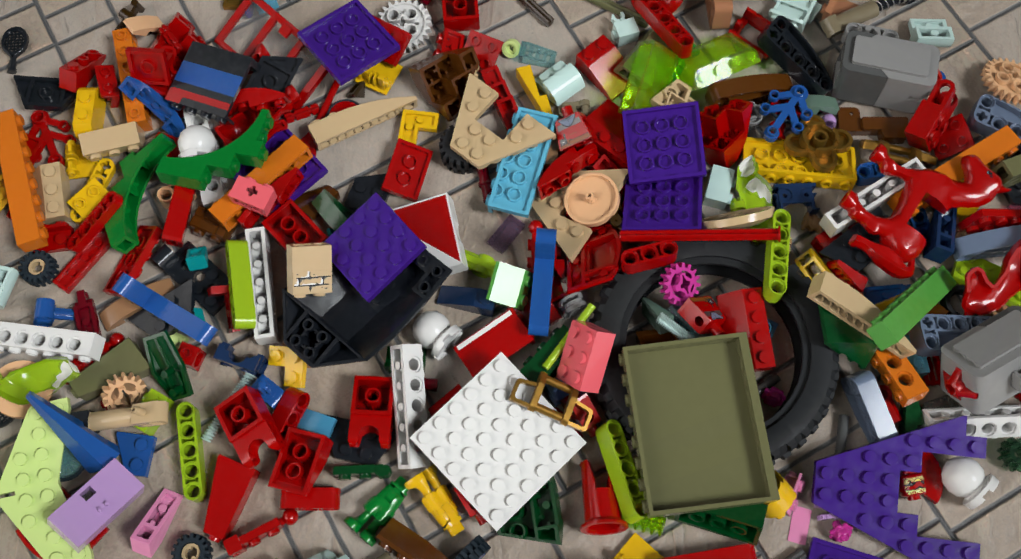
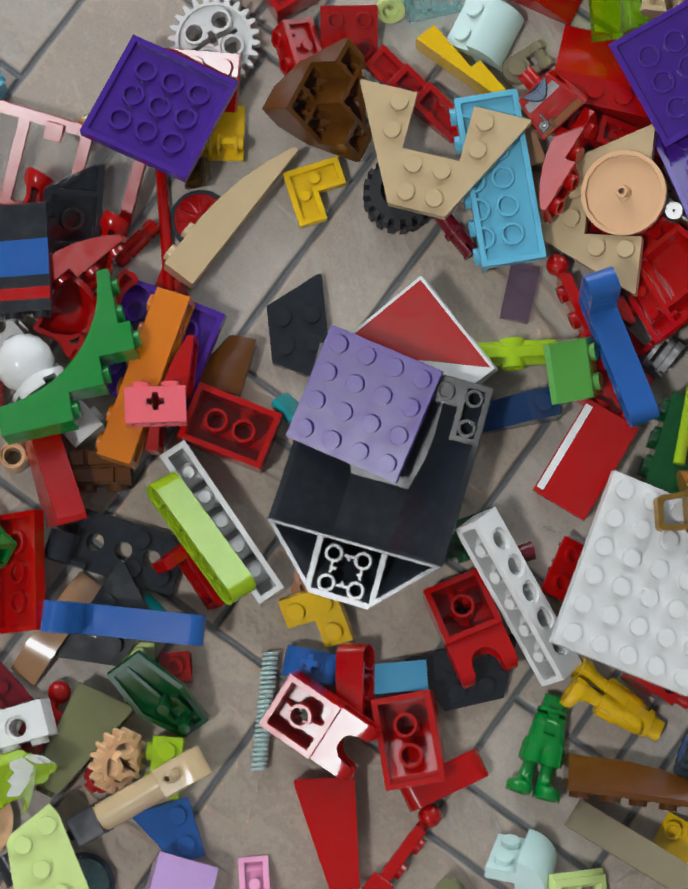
camera: 25 degrees left, 10 degrees up
(87, 446) = (112, 854): blue wedge -> none
(196, 460) = (237, 785): lime beam -> none
(197, 258) = (108, 526): teal slope -> none
(254, 365) = (271, 642): dark blue piece -> none
(309, 269) = (294, 475): tan brick -> none
(331, 209) = (271, 374): dark green slope -> none
(364, 472) = (496, 712): dark green hinge -> none
(407, 170) = (336, 263): red plate -> none
(435, 333) = (499, 480): white tile -> none

